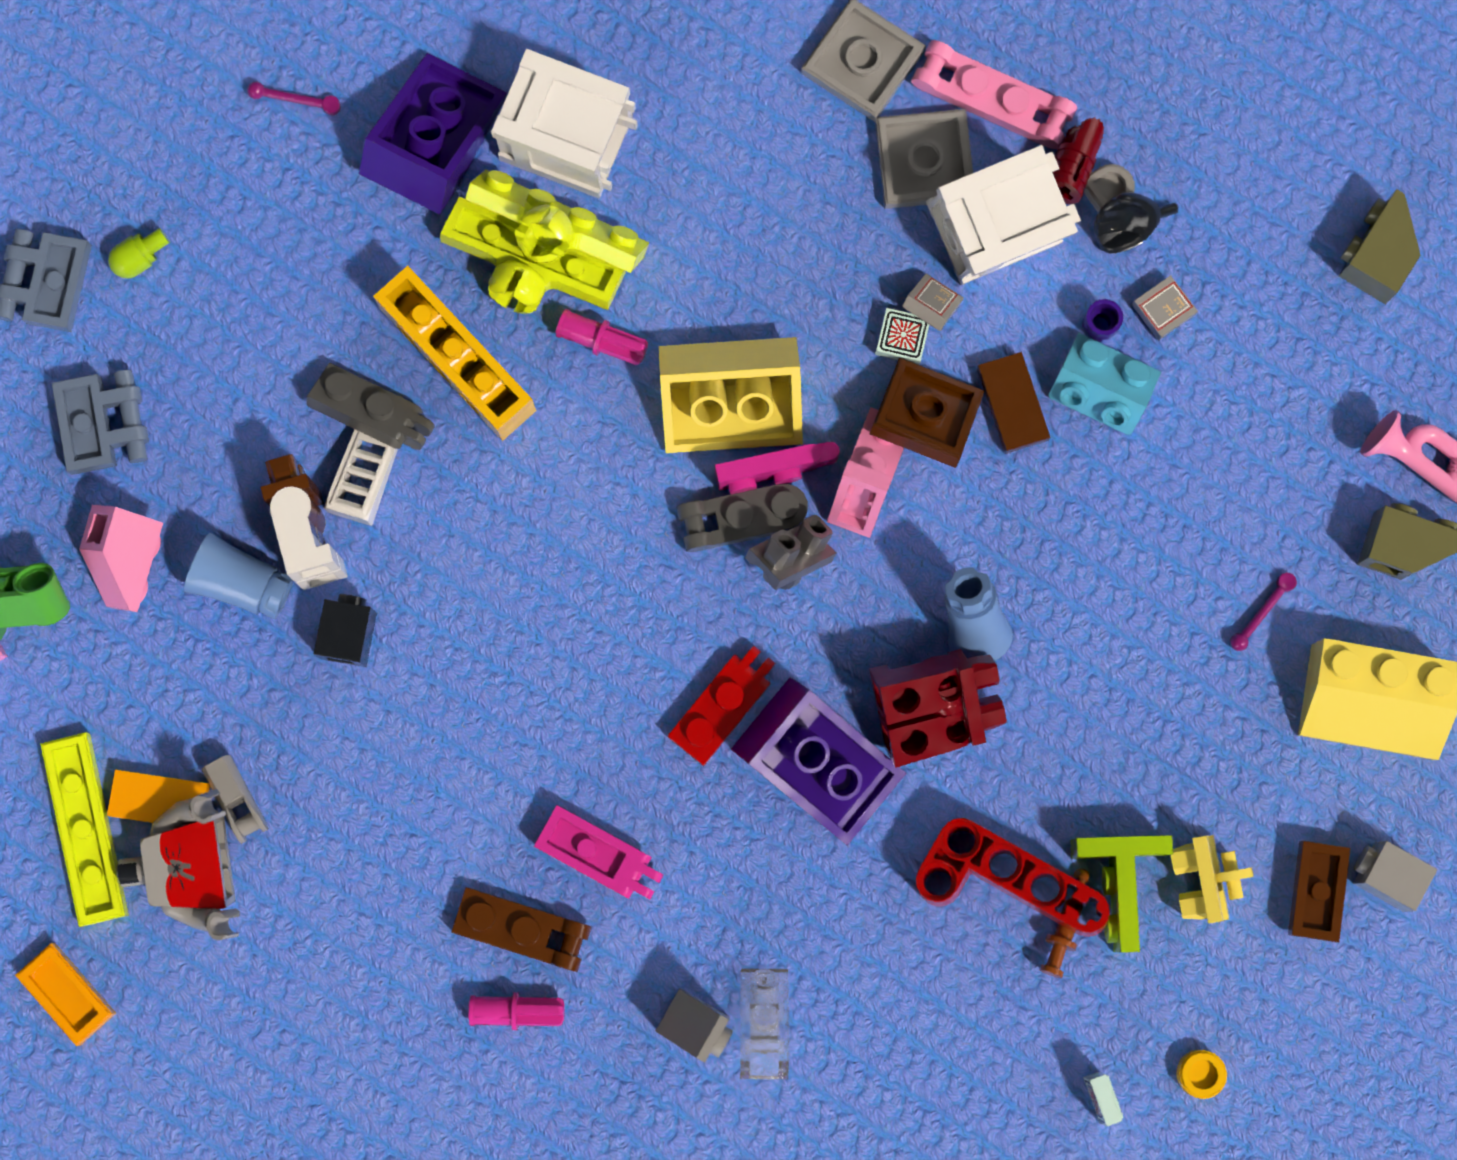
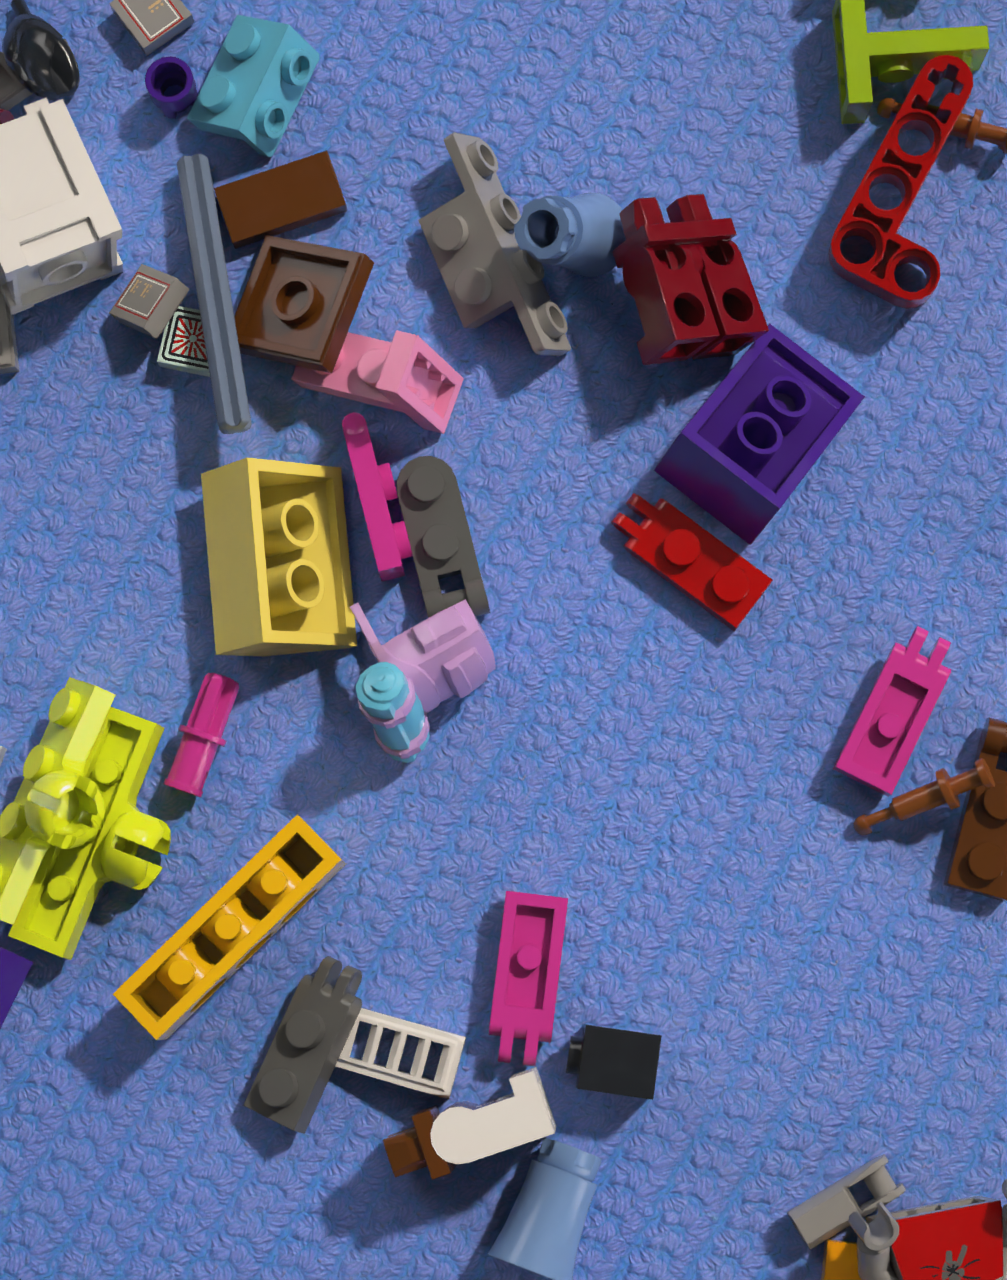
camera: 90 degrees left, 0 degrees up
(415, 570) = (527, 972): none -> dark pink hinge
(534, 886) = (929, 796): none -> dark orange piece
(637, 491) = (419, 671): none -> lavender piece
(793, 553) = (491, 468): flat silver hips -> none
(936, 349) = (214, 294): none -> sand blue axle
(967, 542) = (480, 256): none -> light grey bracket

